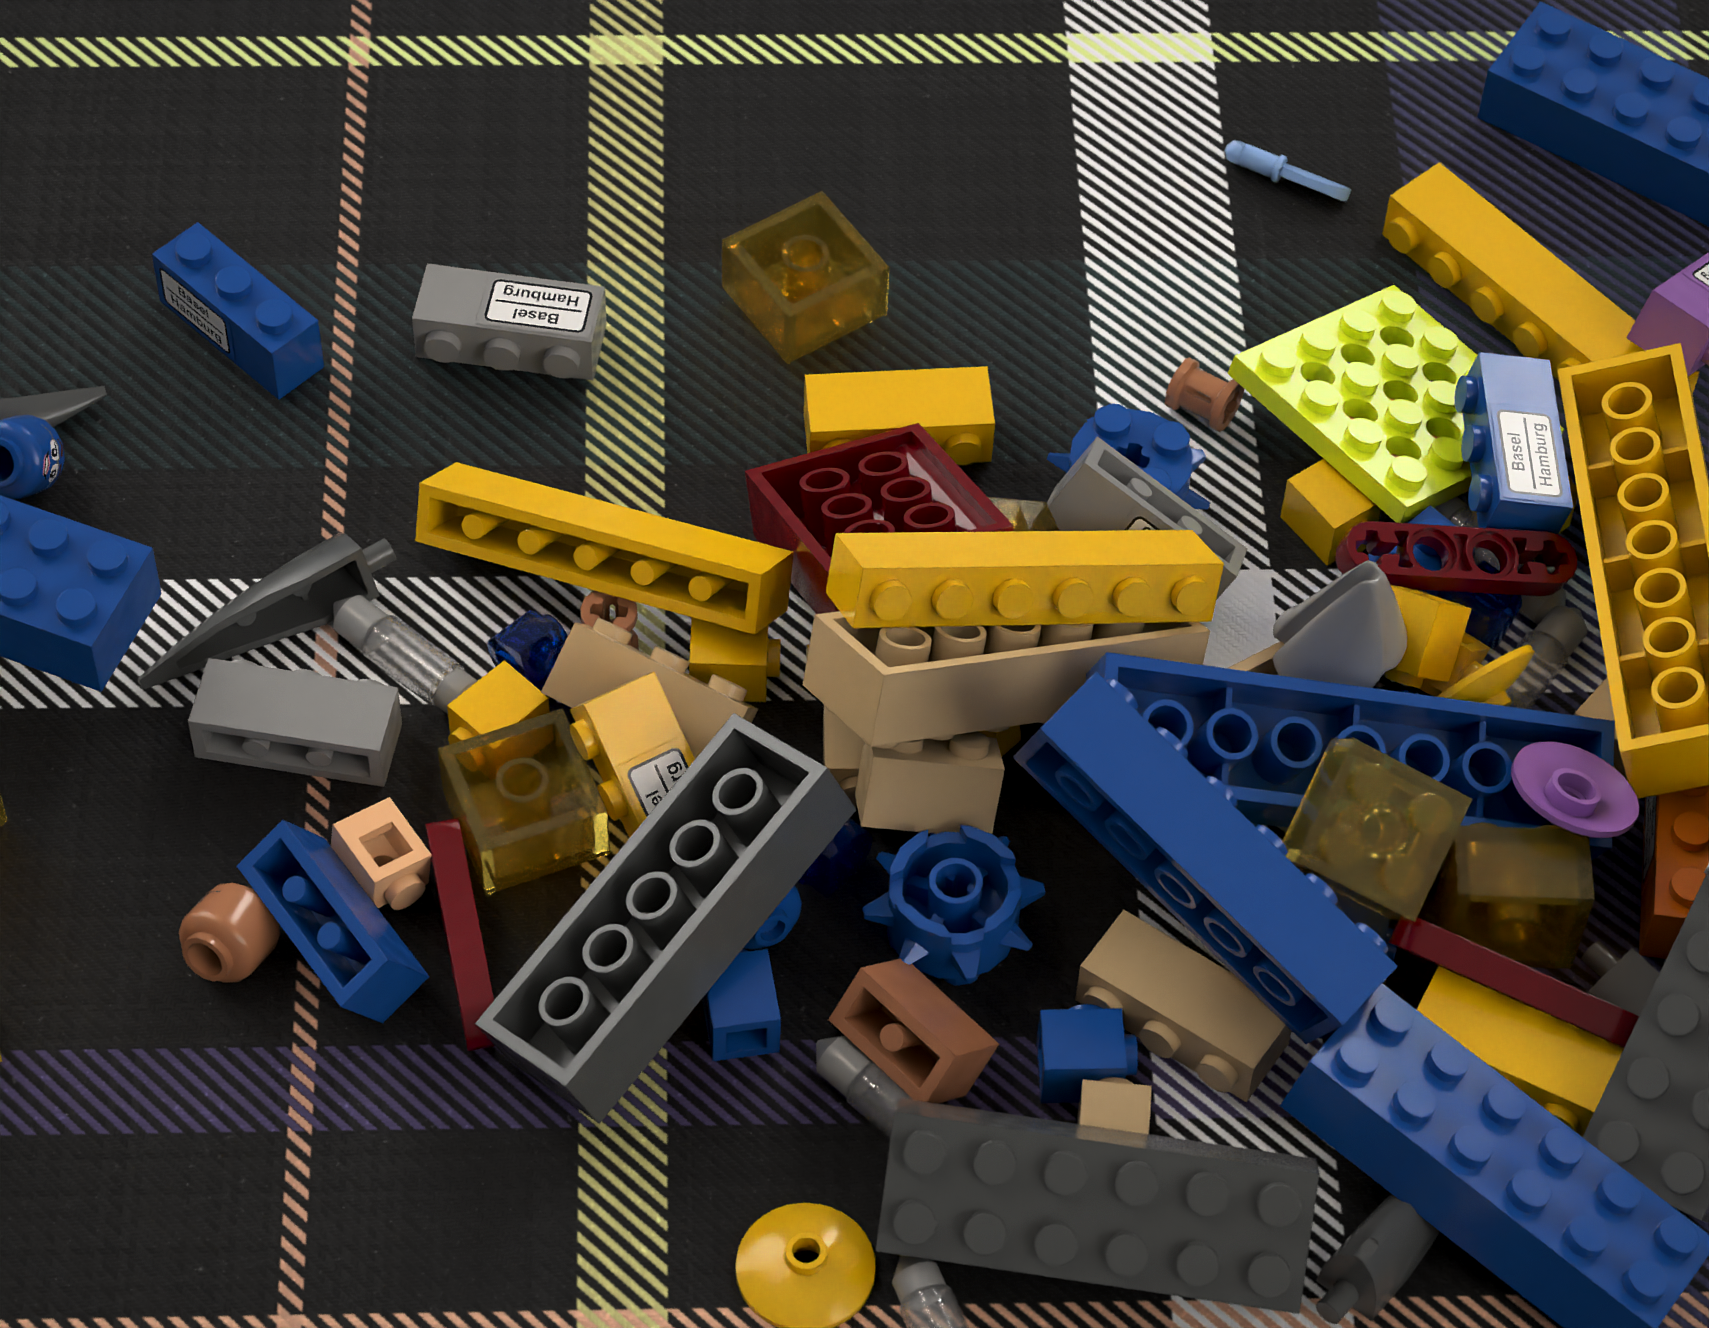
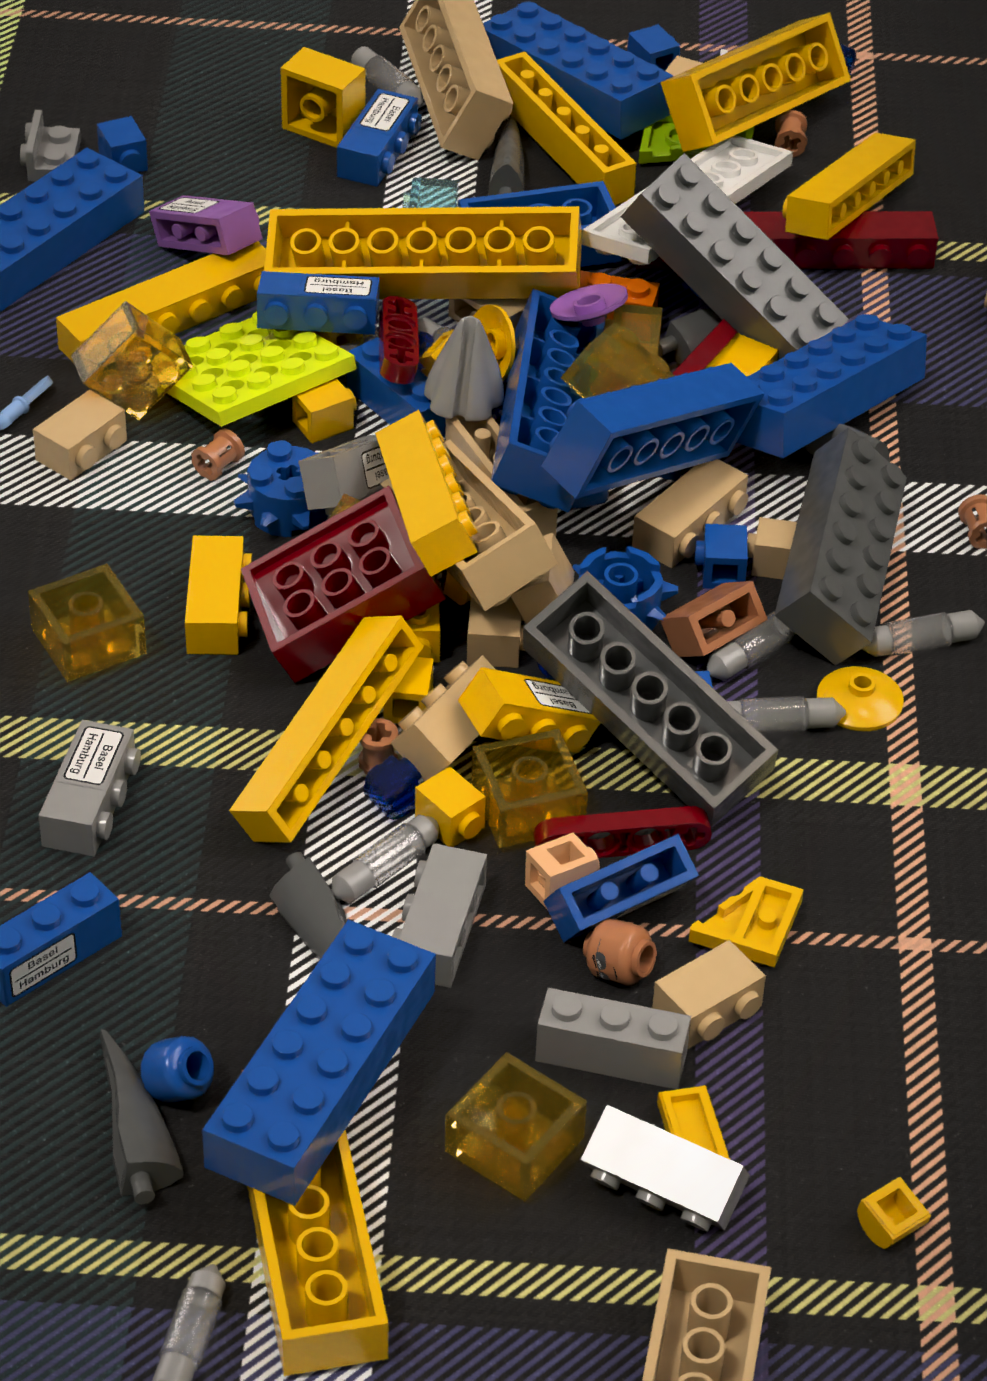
camera: 85 degrees left, 10 degrees down
(66, 928) = (612, 1038): none -> light grey brick
(152, 1046) = (713, 991): none -> tan brick
(300, 1106) = (753, 920): none -> yellow wing
(734, 1137) = (789, 713): none -> clear piece
(1211, 233) = (80, 435): none -> tan brick
(1332, 246) = (131, 360): none -> clear yellow brick

